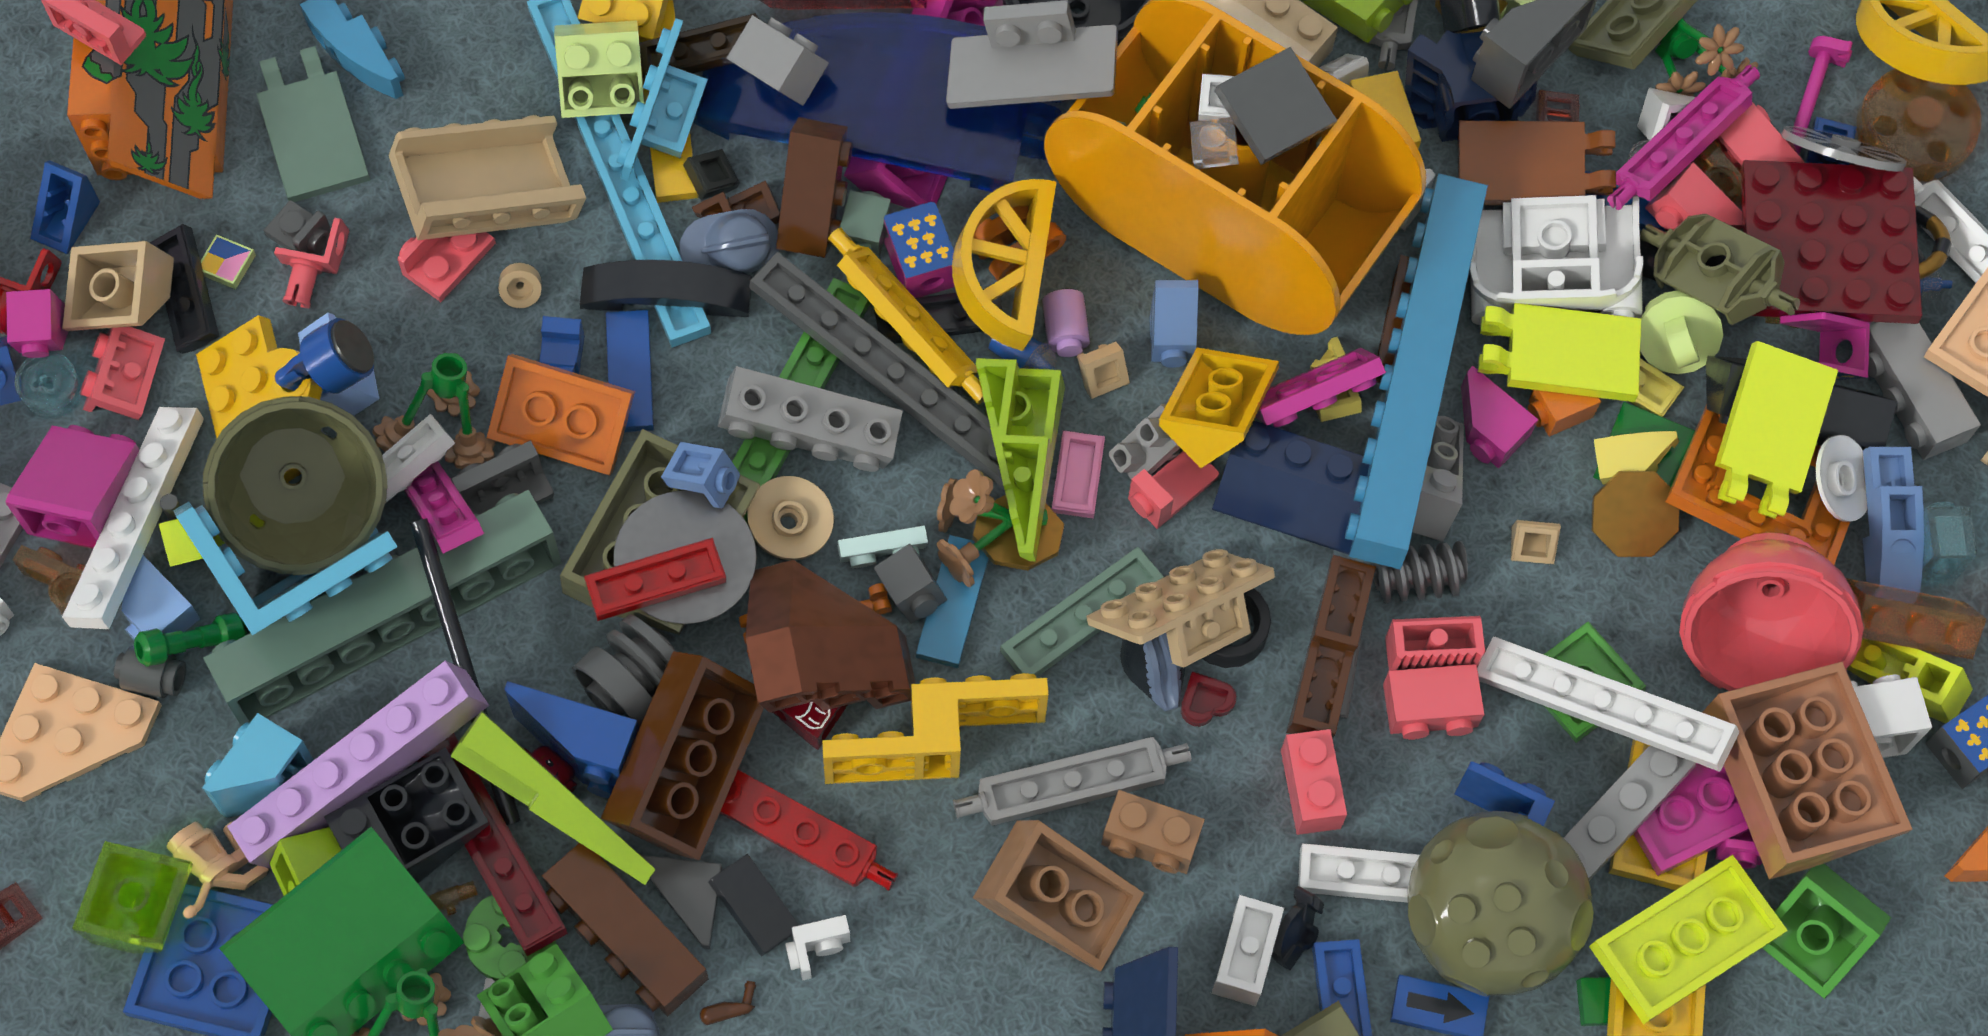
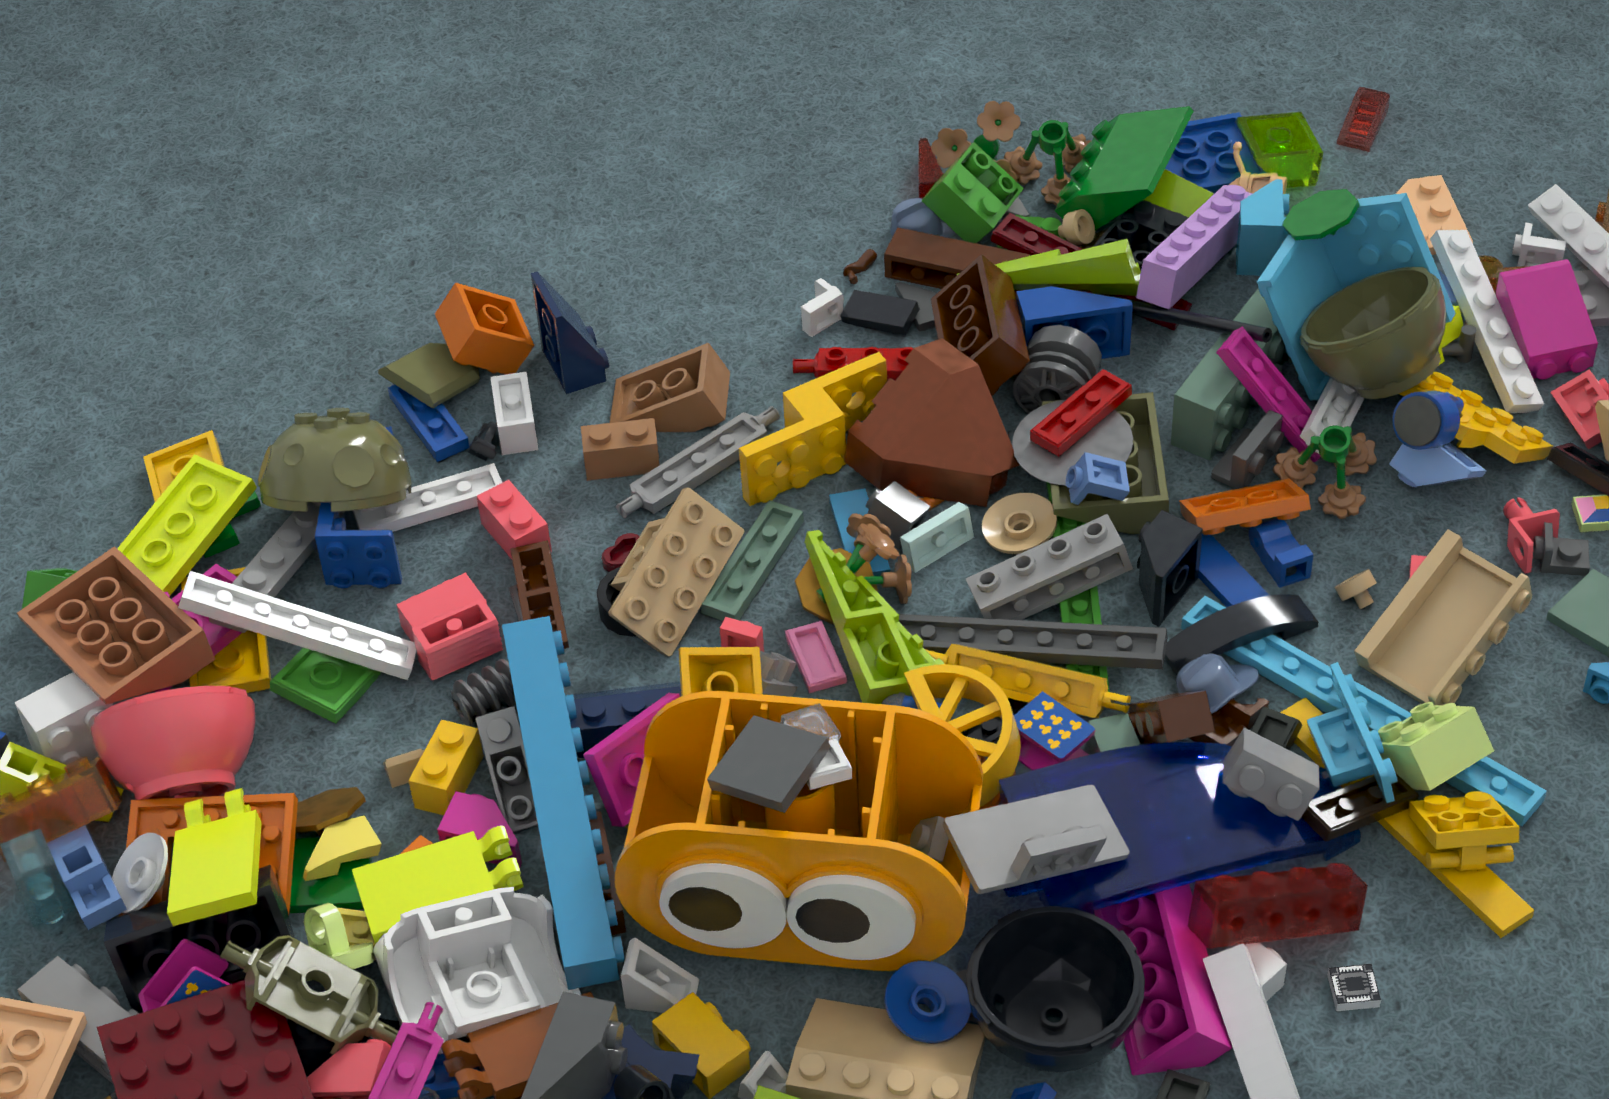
camera: 160 degrees right, 20 degrees down
(264, 586) = (1321, 214): none -> green piece
(459, 898) = (1077, 227): none -> tan tile
(691, 370) = (1167, 563): none -> black slope
(1500, 500) = (445, 766): none -> yellow brick

